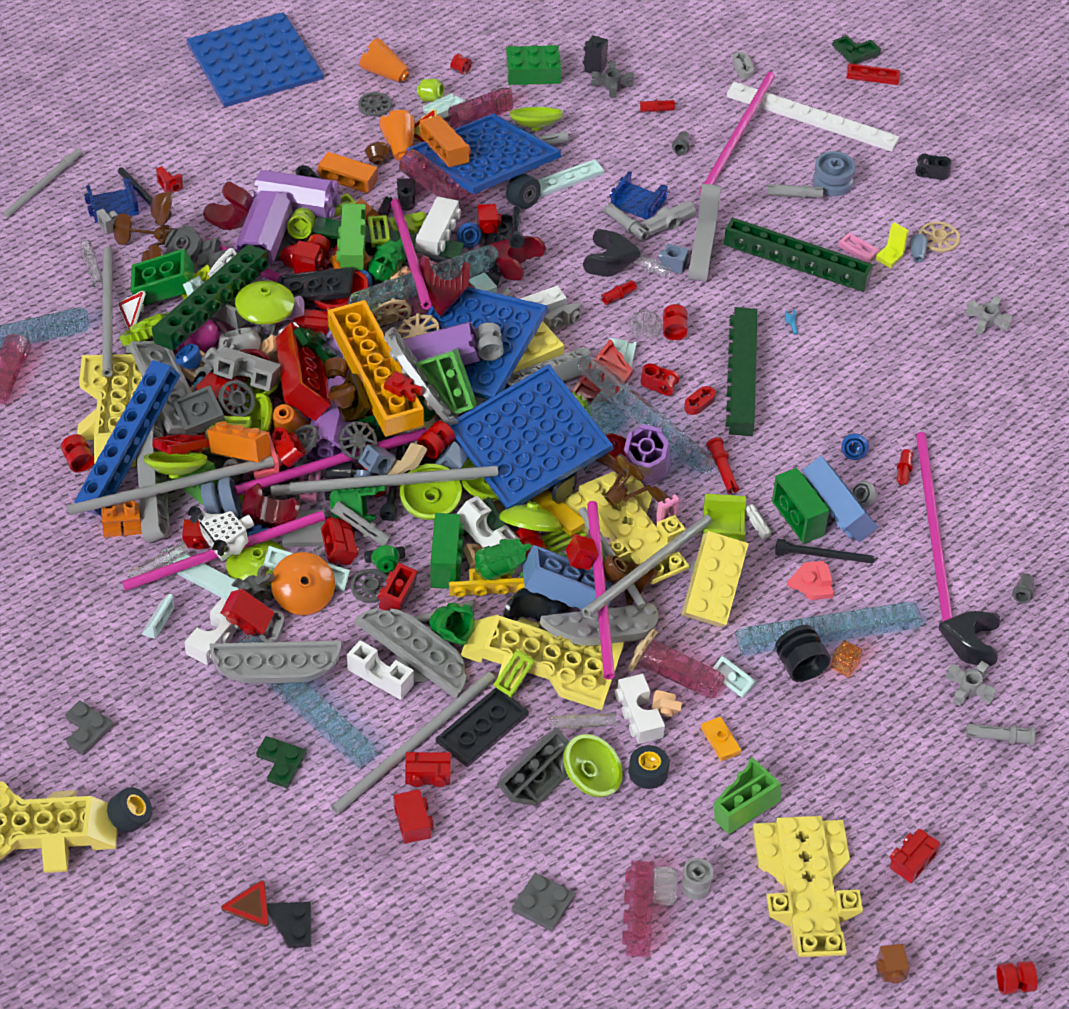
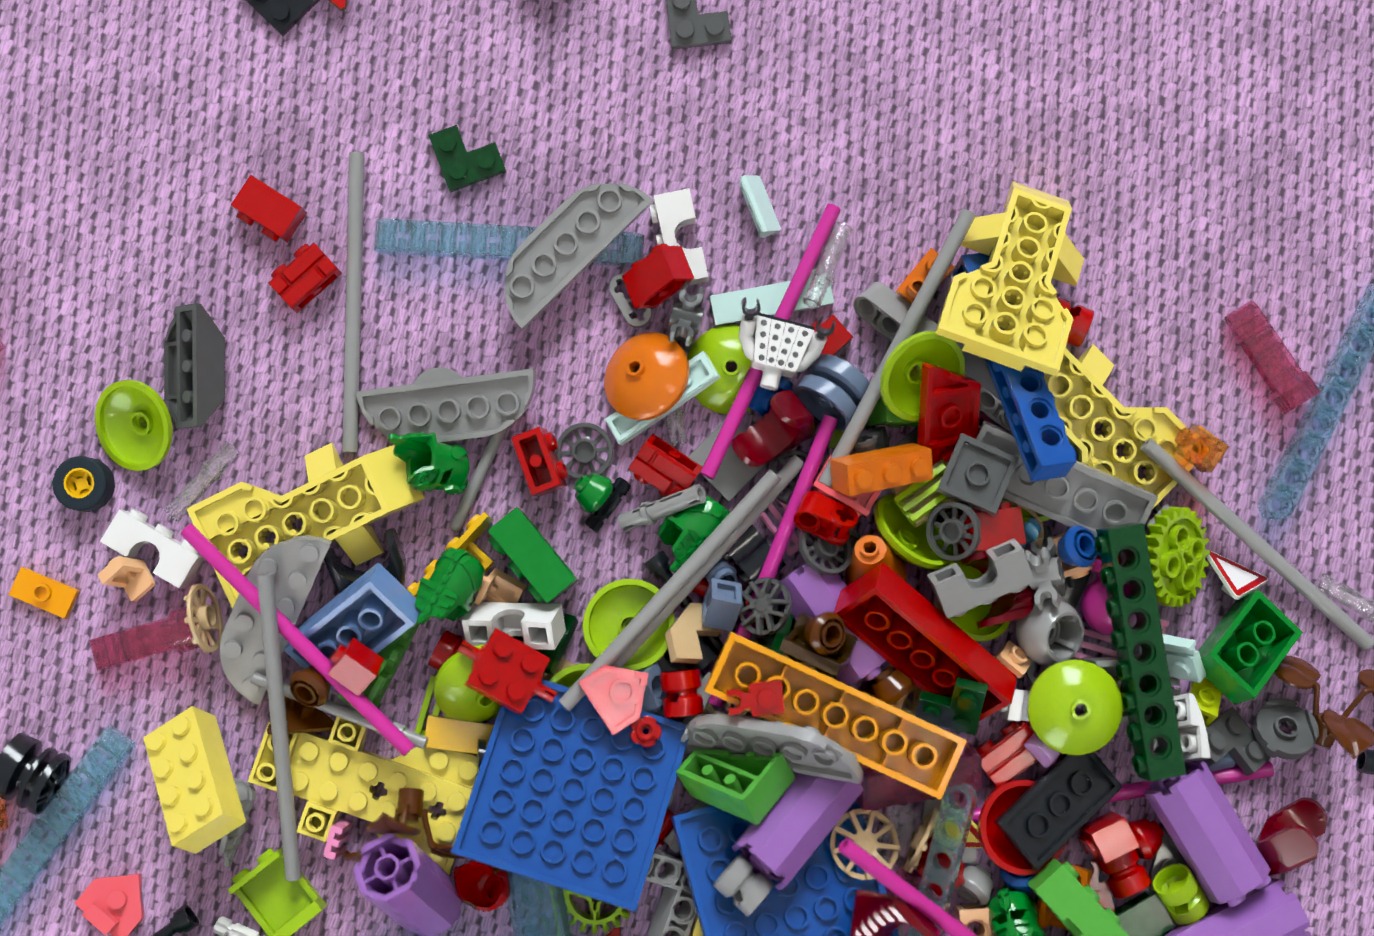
camera: 135 degrees right, 35 degrees up
(89, 356) = (1209, 447): none -> clear orange brick
(103, 450) = (1025, 244): none -> light yellow piece
(365, 663) = (448, 347): white arch -> none
(468, 453) = (615, 695): none -> coral plate
(470, 437) = (639, 737): none -> red plate
(482, 726) = (302, 383): black tile -> none
(509, 500) = (507, 671): none -> red plate
(524, 657) = (317, 461): lime tile -> none
(543, 902) = (60, 237): dark grey plate -> none
(735, 677) = (95, 688): light aqua slope -> none

